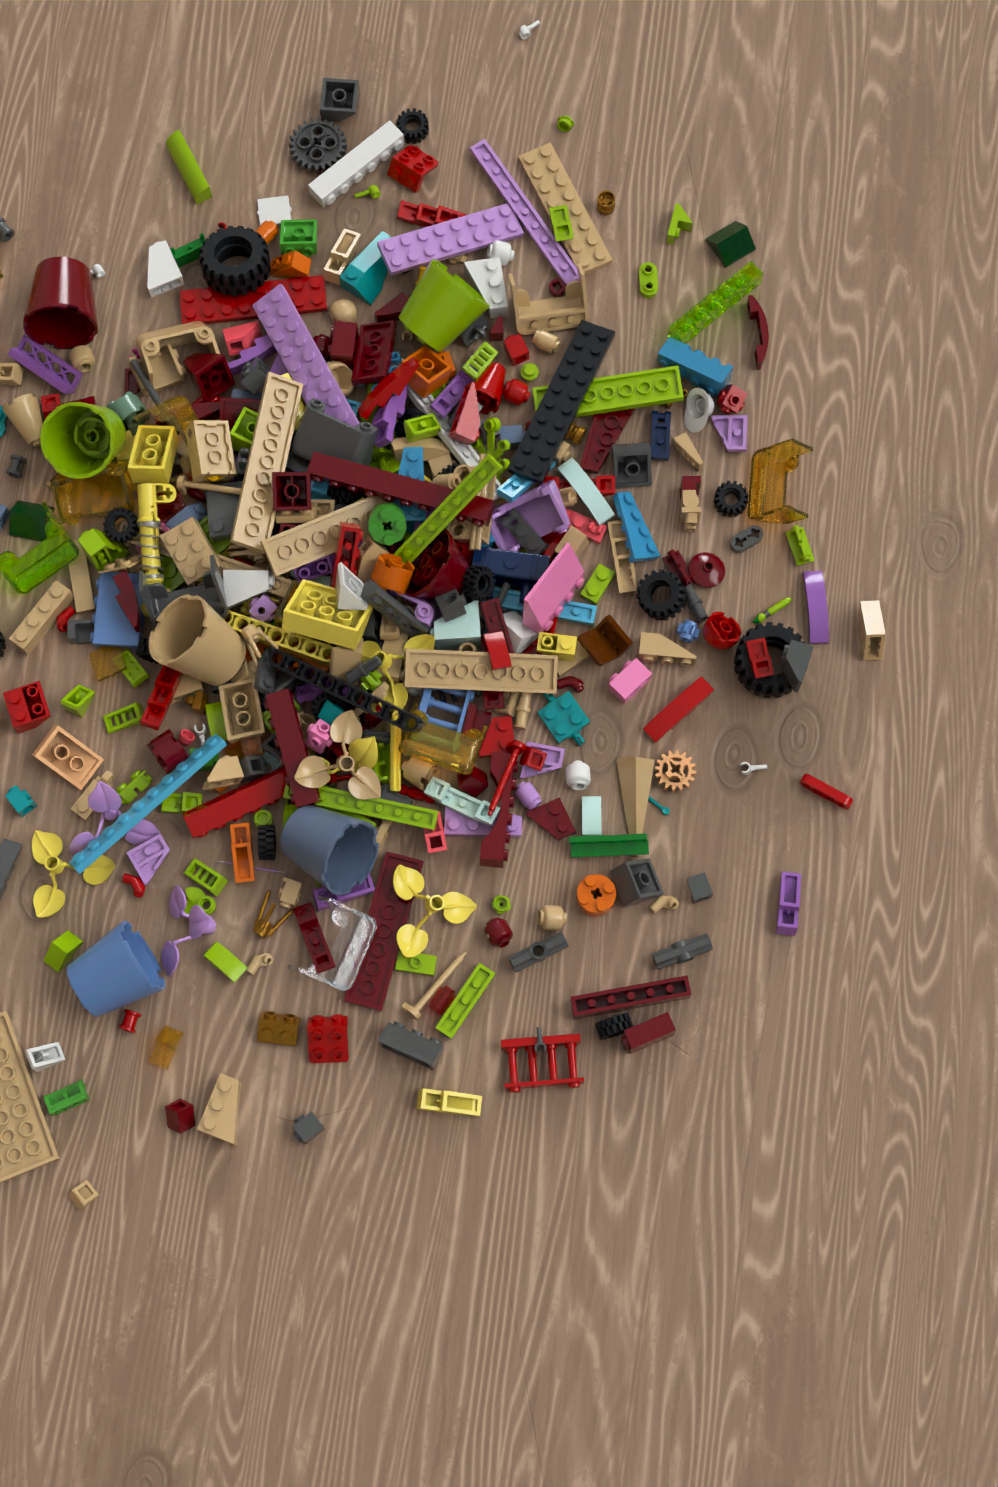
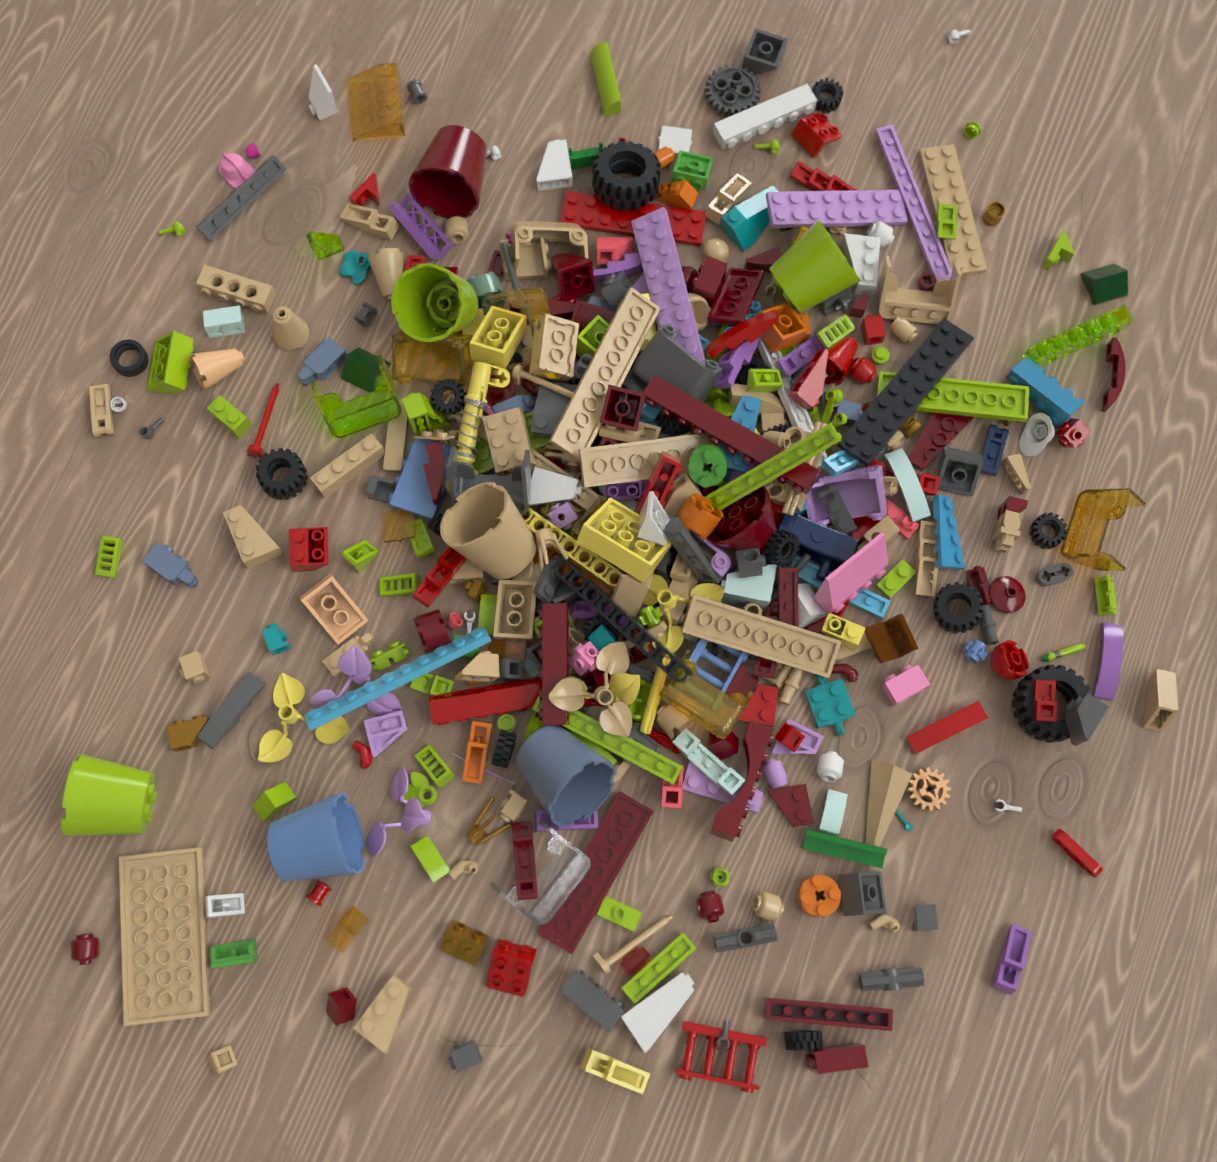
camera: 10 degrees right, 0 degrees up
(62, 618) = (368, 471): red arm -> none
(363, 669) = (646, 604): dark grey axle -> none
(456, 907) = (671, 864): light yellow plant -> none
(472, 1040) = (657, 1010): none -> white slope
(497, 650) = (783, 620): red slope -> none
(517, 749) = (777, 723): red piece -> none
(648, 278) = (1016, 296): lime plate -> none
(659, 648) = (943, 660): tan slope -> none
(732, 431) = (1064, 465): lavender wing -> none

